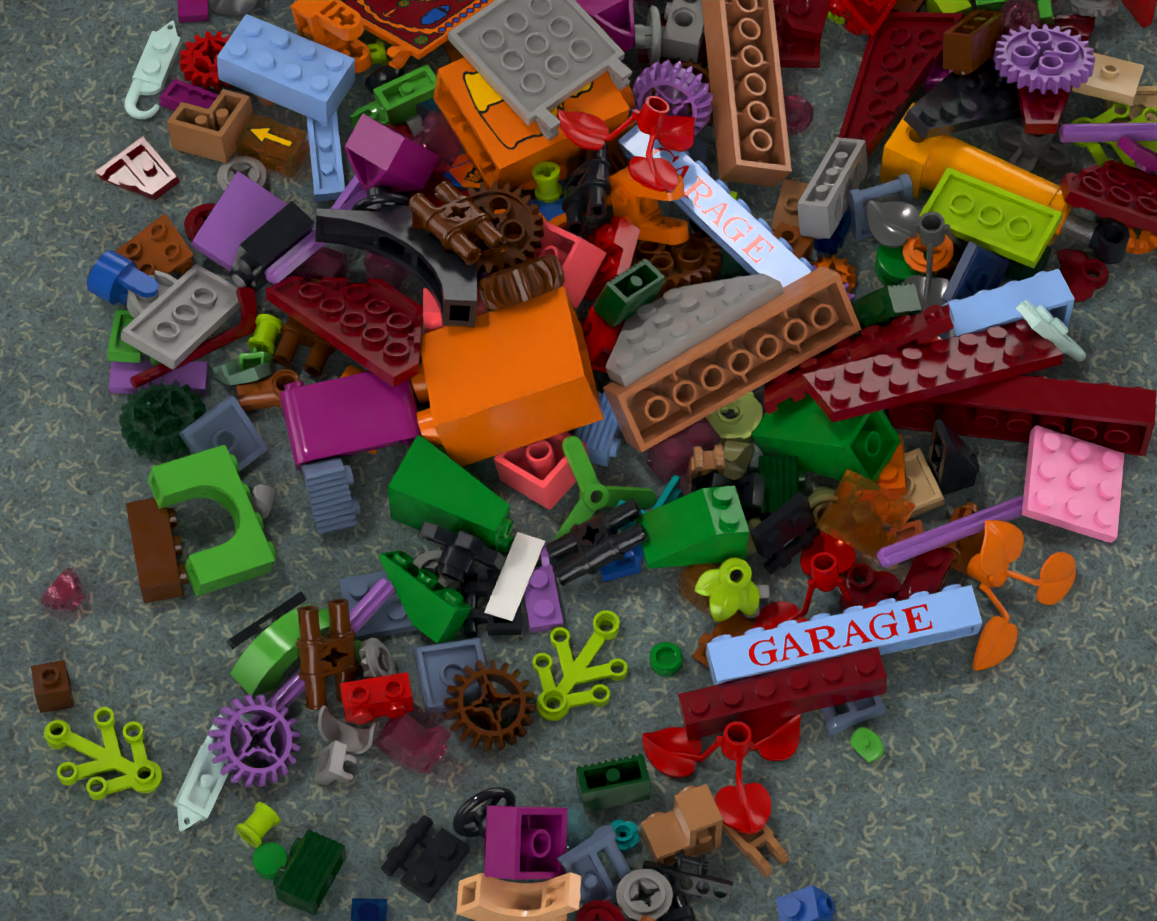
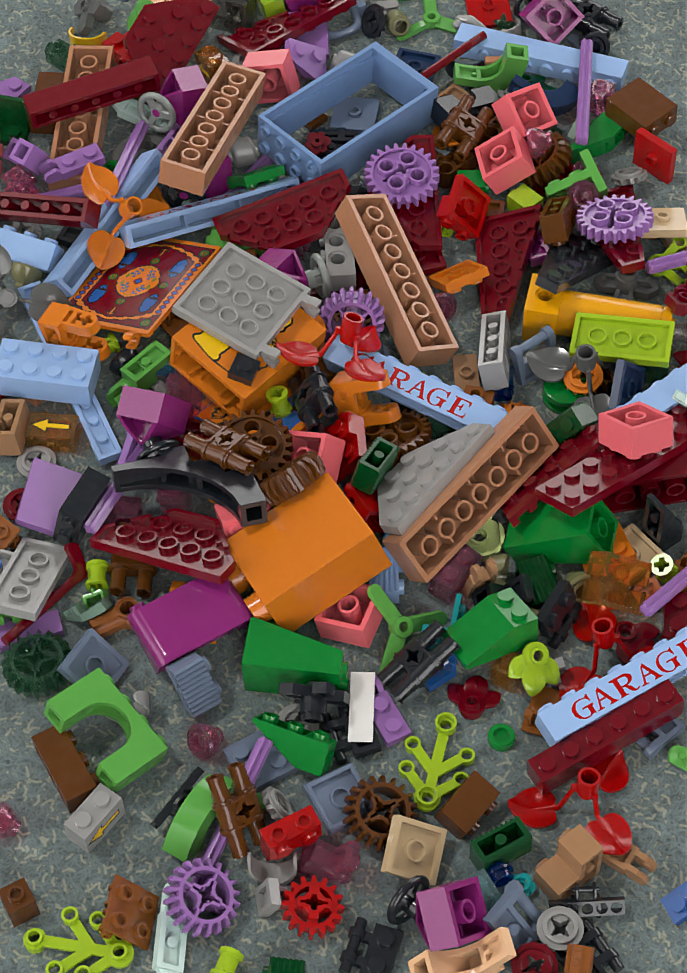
camera: 15 degrees left, 5 degrees down
(167, 616) = (94, 818): none -> light grey brick
(170, 734) = (129, 913): none -> dark orange hinge
(321, 563) = (204, 740): none -> clear pink brick
(363, 782) = (301, 907): none -> red gear
(510, 132) = (244, 369): none -> black plate
(512, 757) = (413, 849): none -> tan plate
(594, 725) = (467, 805): none -> reddish brown brick
(600, 814) = (501, 873): none -> clear blue plate
(651, 602) = (473, 697): none -> dark red plate
(827, 79) = (457, 276): none -> orange plate
(933, 512) = (659, 565): none -> lime bush
(949, 337) = (636, 430): none -> coral brick

